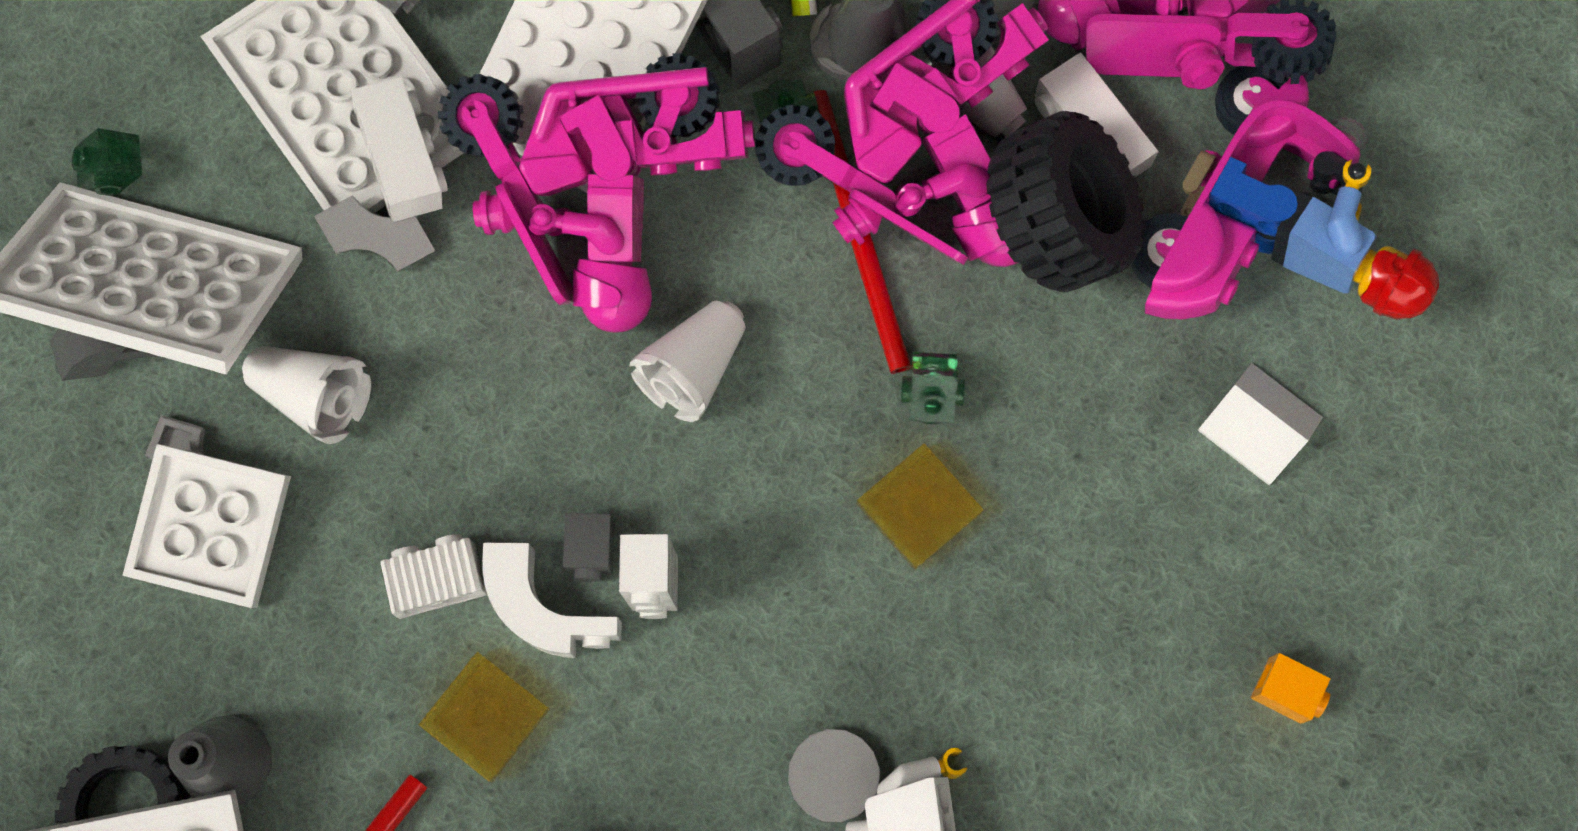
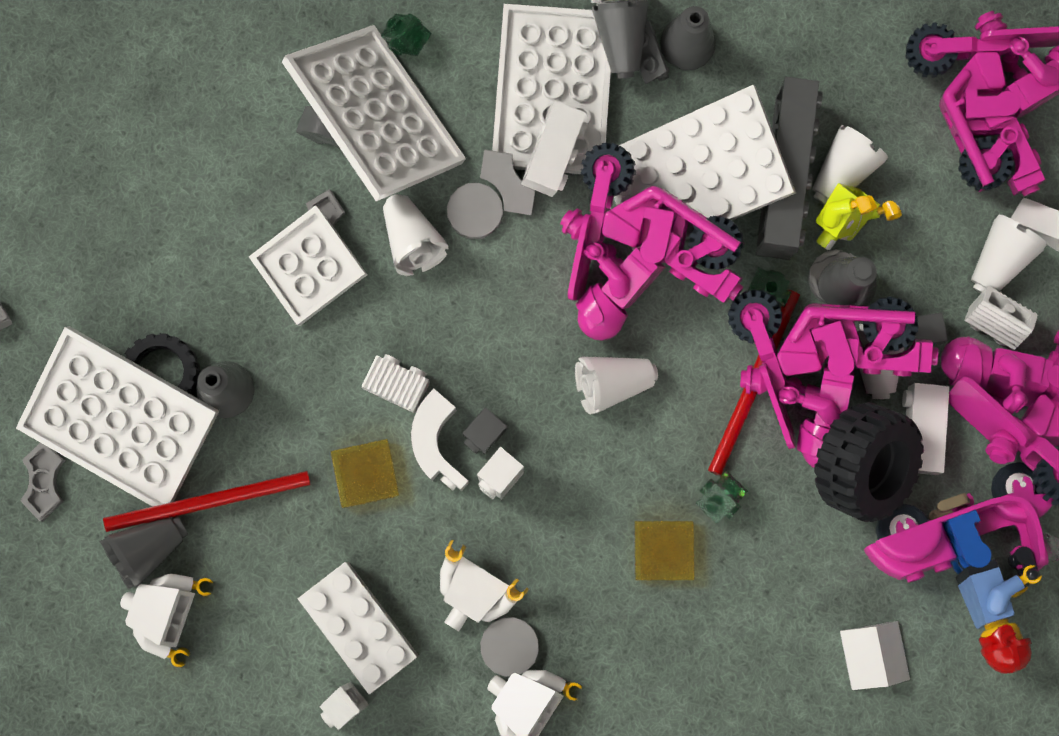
camera: 35 degrees right, 5 degrees up
(363, 300) = (474, 211): none -> light grey tile
(734, 743) = (473, 590): none -> white torso

